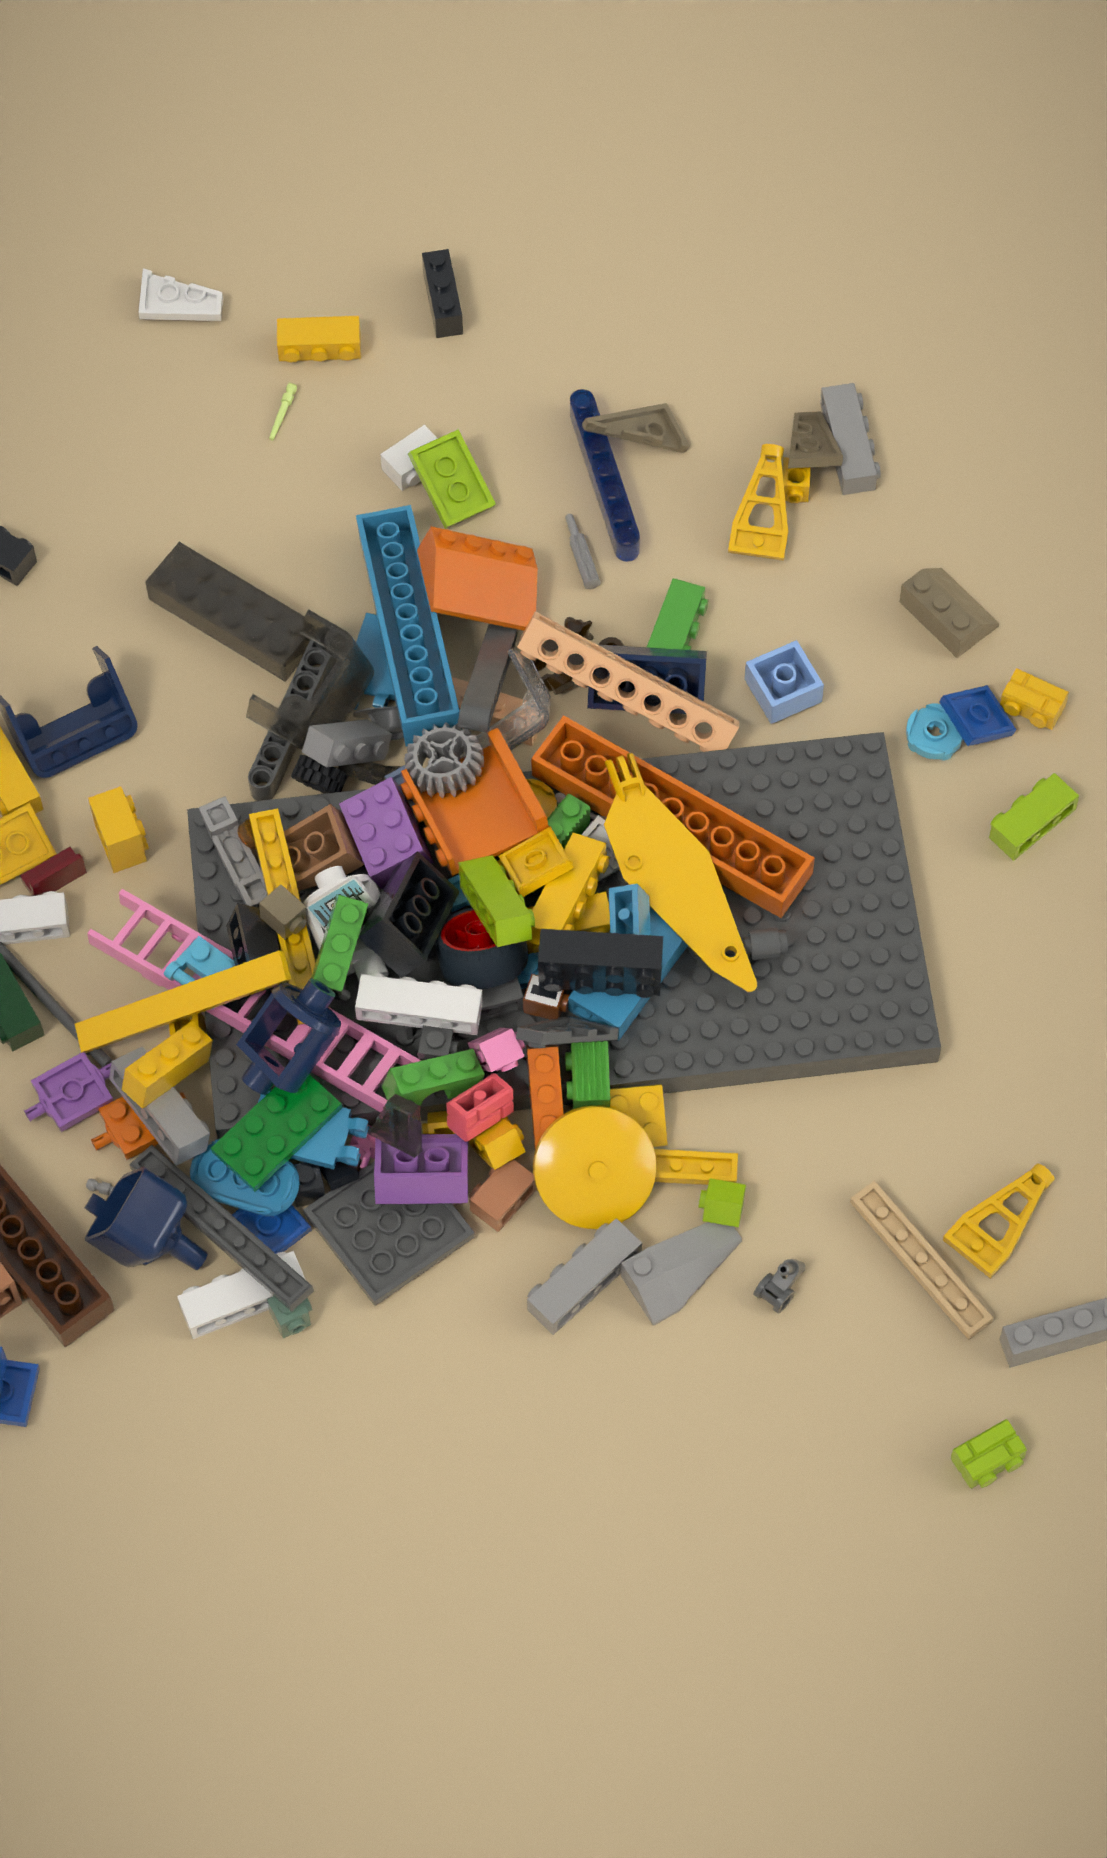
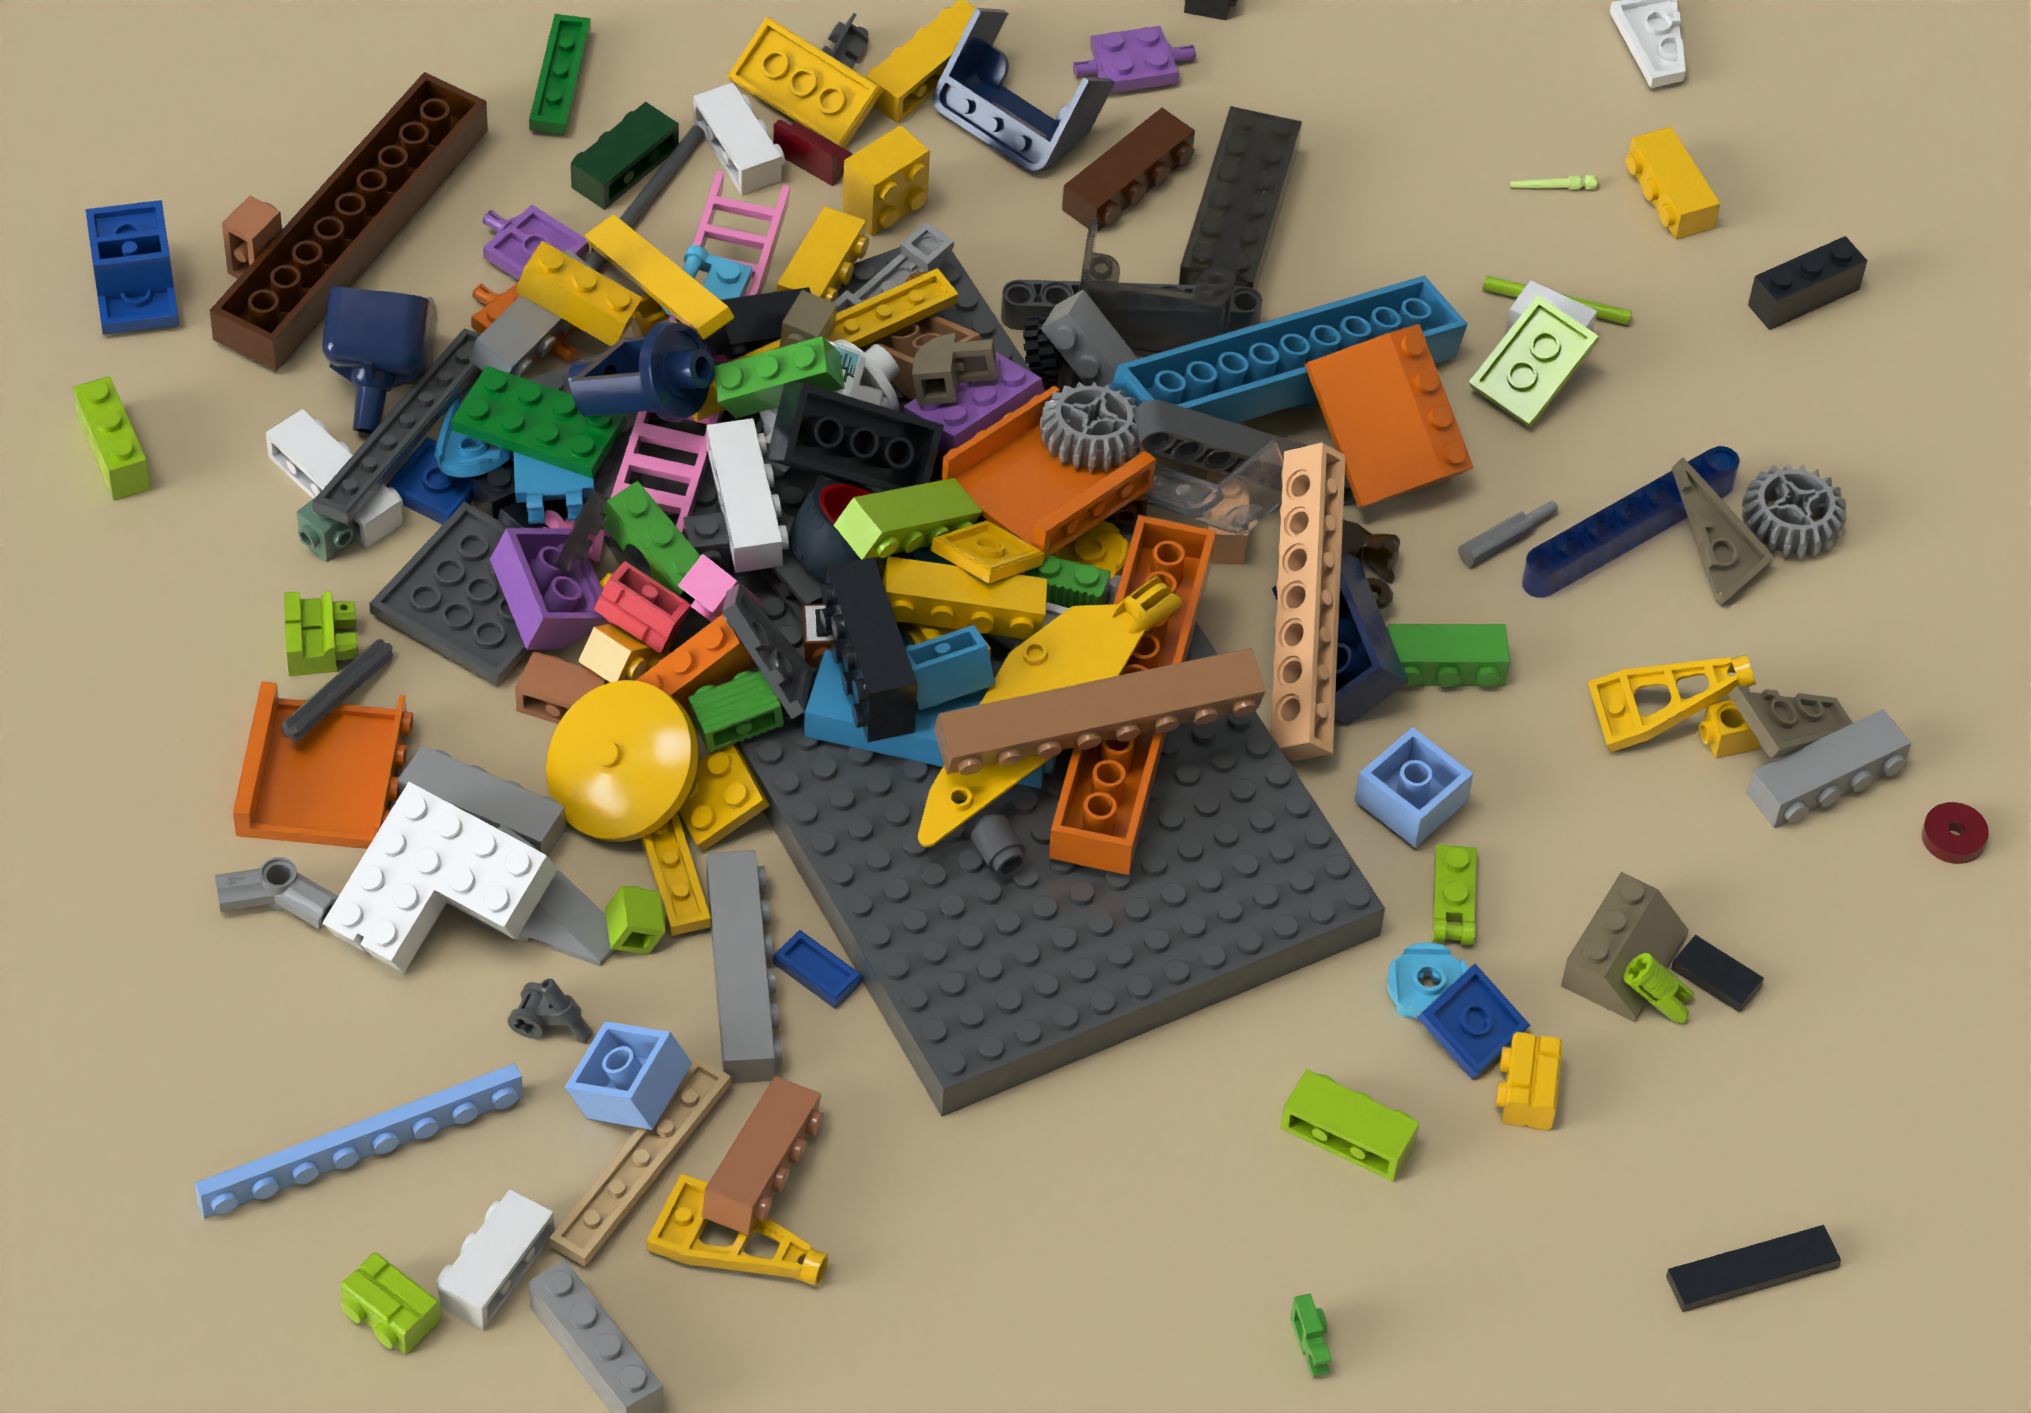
camera: 65 degrees right, 10 degrees down
(54, 632) = (1134, 59): none -> medium lavender plate
(142, 1443) = (111, 438): none -> lime brick
(165, 671) = (1129, 169): none -> reddish brown brick
(198, 890) = (827, 255): none -> yellow brick
(359, 832) = (946, 363): none -> dark tan brick
(375, 463) = (1514, 290): none -> lime bar
(385, 1347) = (311, 634): none -> lime hips
(447, 1345) = (337, 690): none -> dark grey axle
(511, 1376) = (328, 784): none -> orange panel
(604, 1450) = (258, 888): none -> light grey piece
(643, 1314) = (429, 858): none -> white piece
(648, 372) = (1797, 499): none -> light grey gear
(707, 837) = (1099, 711): none -> medium nougat brick
(783, 1146) = (741, 968): none -> light grey brick
(795, 1101) = (817, 969): none -> blue tile
(851, 1449) = (358, 1141): none -> light blue plate
(861, 1243) = (628, 1075): none -> light blue brick
(868, 692) = (1454, 894): none -> lime plate
(913, 399) = (1952, 847): none -> dark red piece
(951, 1178) = (762, 1156): none -> nougat brick
(973, 1375) = (495, 1258): none -> white brick
(981, 564) = (1717, 973): none -> black tile
(989, 599) = (1659, 986): none -> lime hinge

